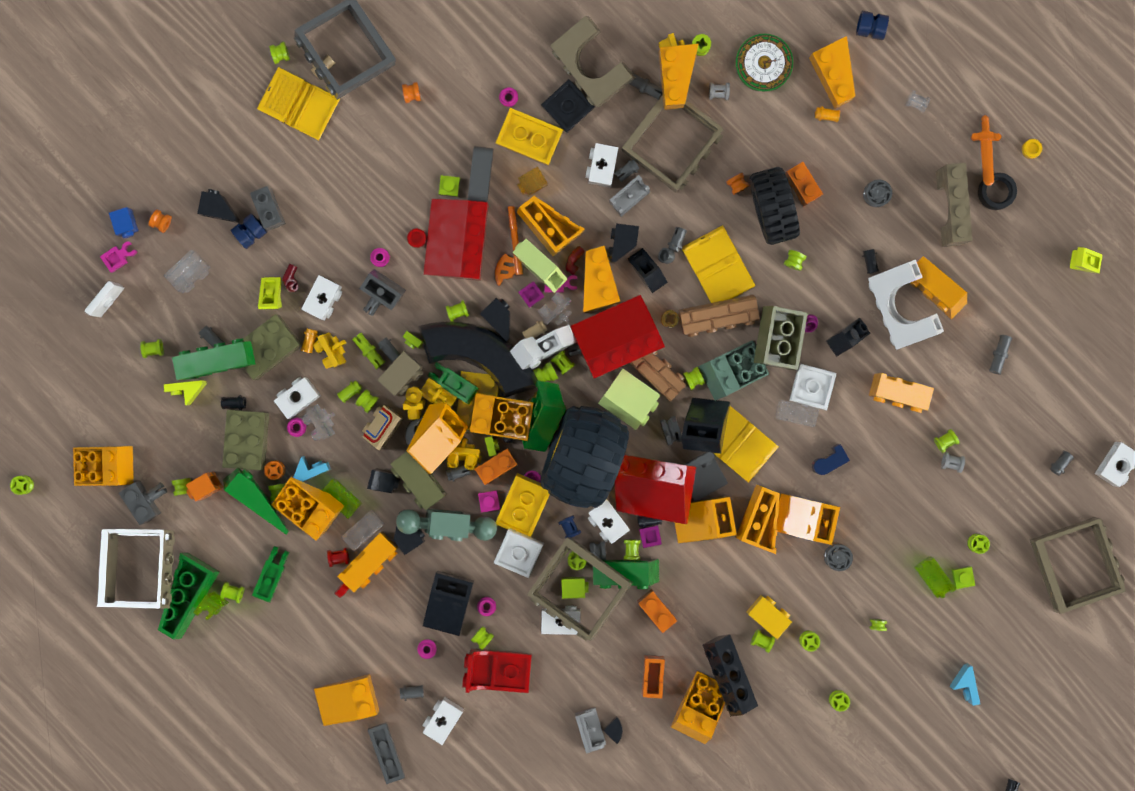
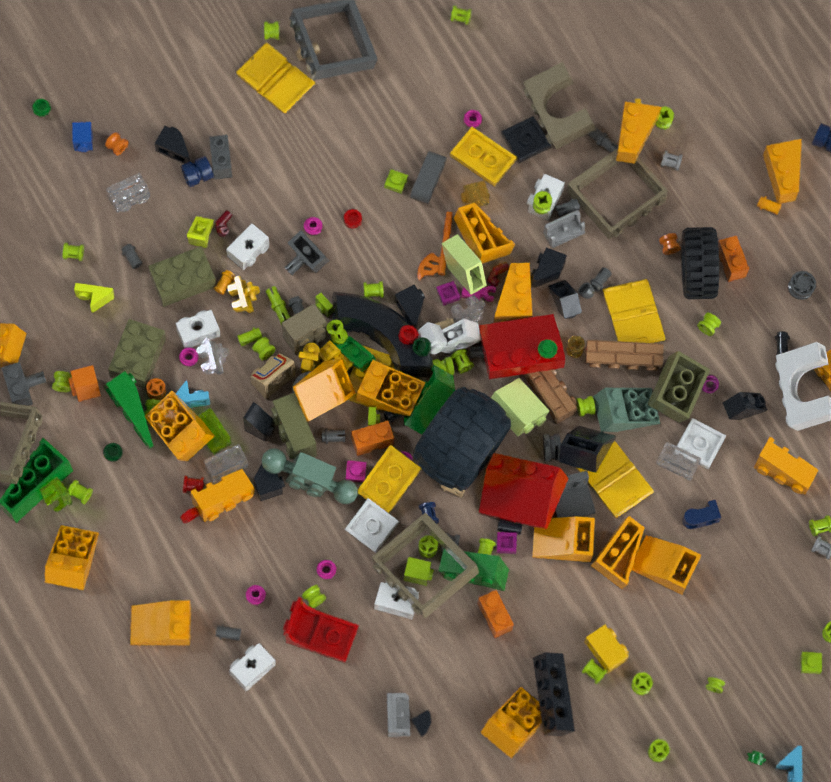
camera: 10 degrees right, 20 degrees down
(73, 200) = (41, 107): none -> green plate
(104, 299) = (44, 194): white plate -> none
(116, 257) = (65, 166): dark pink plate -> none
(213, 360) = (131, 269): green wedge -> none
(233, 402) = (136, 317): black pin -> none
(243, 658) = (71, 557): none -> light orange slope
(252, 543) = (112, 452): none -> dark green plate
(270, 576) = (121, 486): green hinge -> none
(386, 753) = (185, 685): dark grey plate -> none
(411, 92) = (383, 92): orange wheel -> none
(433, 369) = (334, 333): none -> lime bush
(448, 603) = (289, 553): black slope -> none
(456, 239) = (390, 227): red slope -> none
(466, 453) = (343, 418): yellow hips -> none
(504, 357) = (408, 334): none -> red tile
(521, 368) = (422, 346): none -> dark green plate
(599, 178) = (544, 206): none -> lime wheel
(607, 511) = (468, 506): white brick -> none
(645, 343) = (547, 349): none -> green plate
(653, 676) = (475, 675): orange brick -> none
(764, 62) = (719, 147): tile -> none
(838, 557) = (689, 609): dark grey wheel -> none
(931, 684) = (756, 757): none -> green plate
(935, 577) = (782, 653): clear neon green hinge -> none

